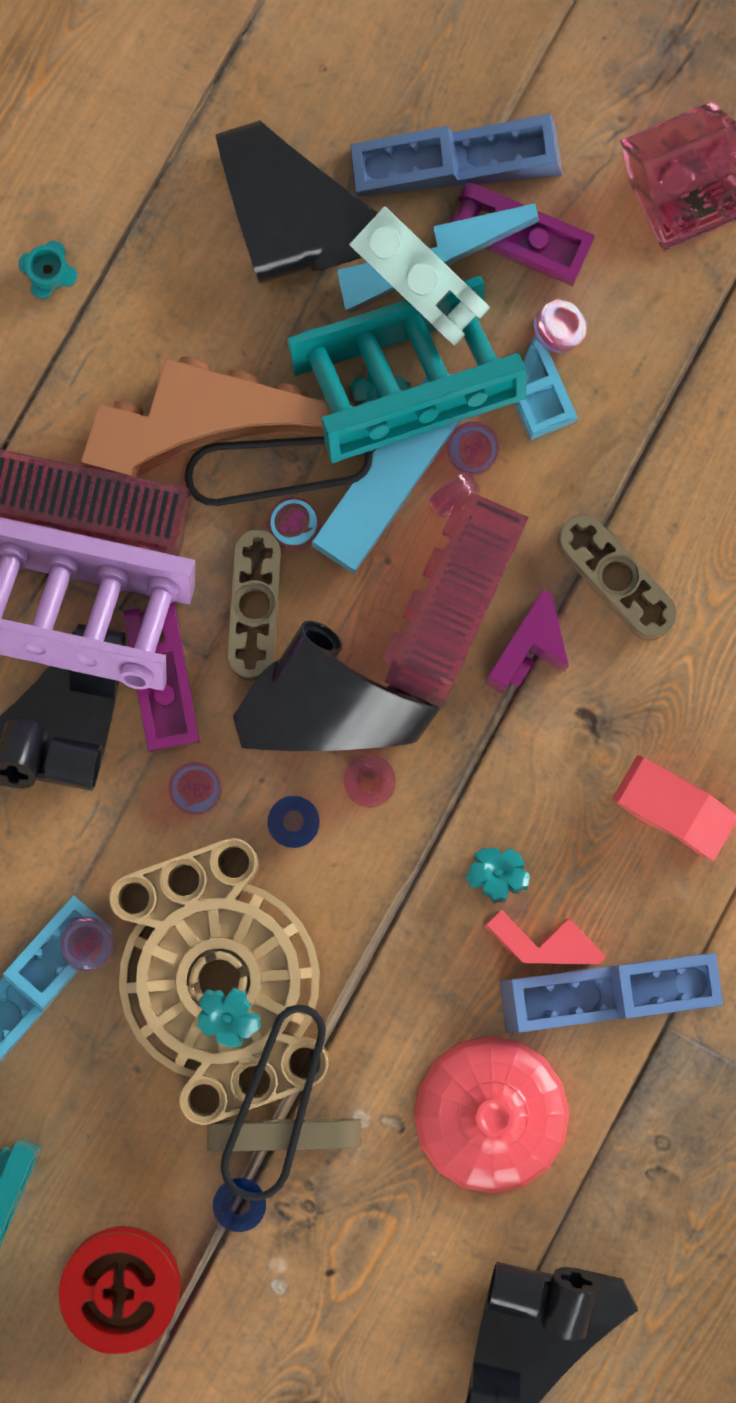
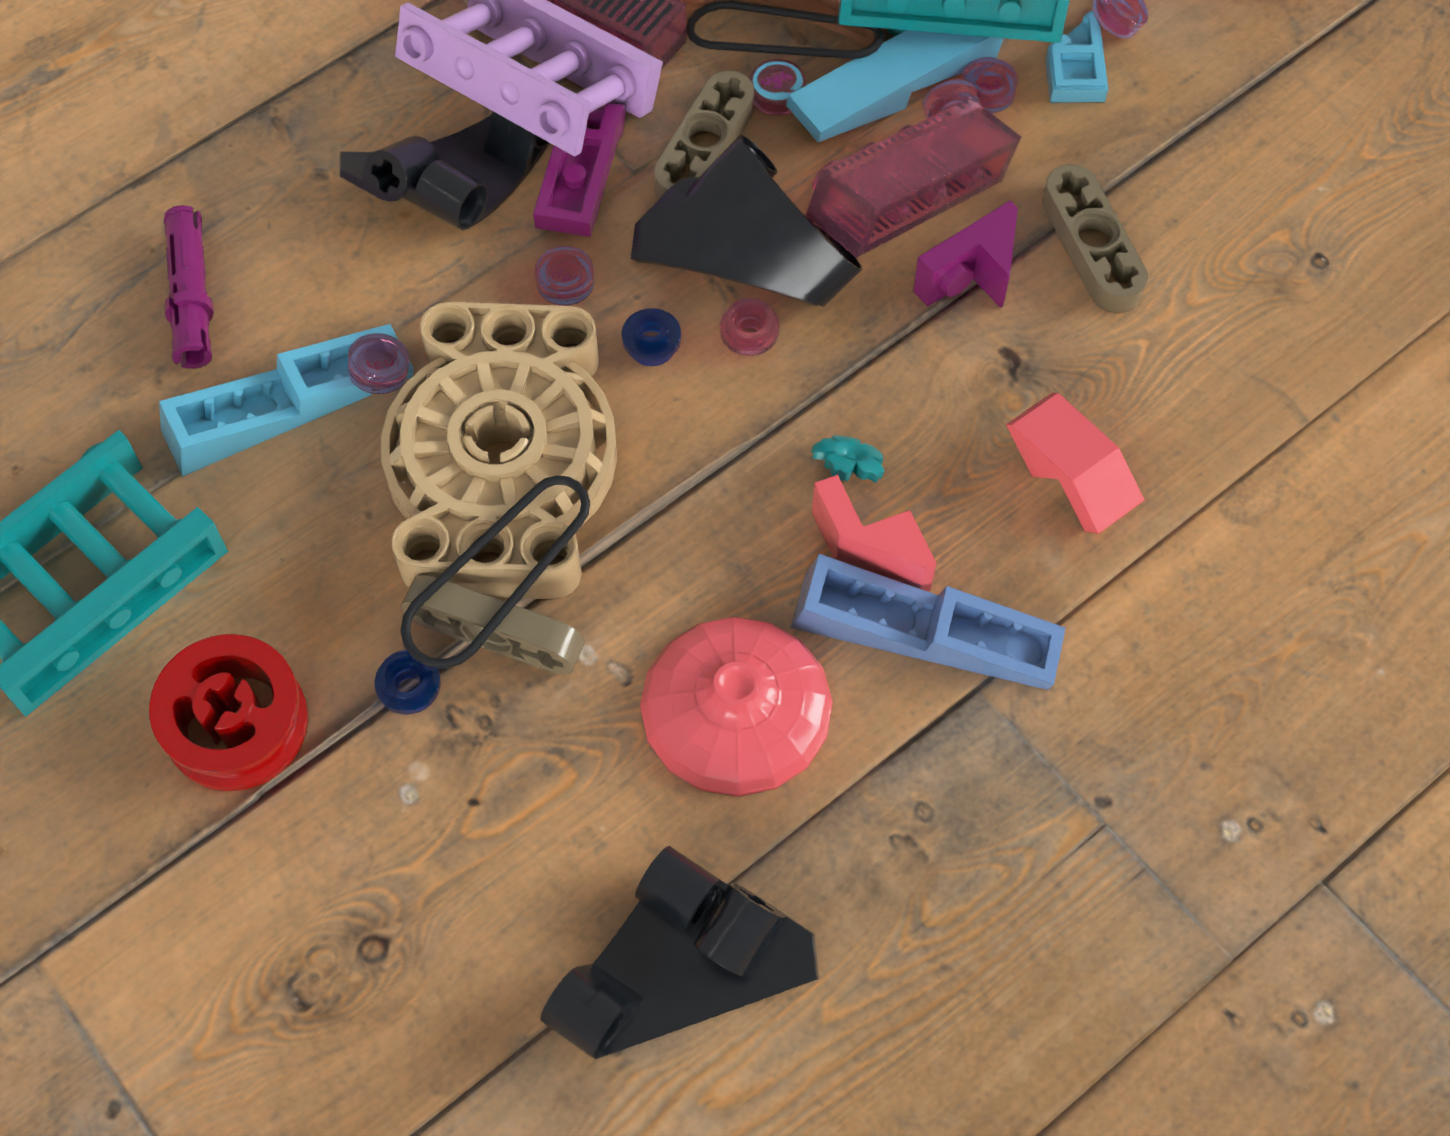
camera: 25 degrees right, 20 degrees down
(227, 1017) = (485, 458): teal plant -> none

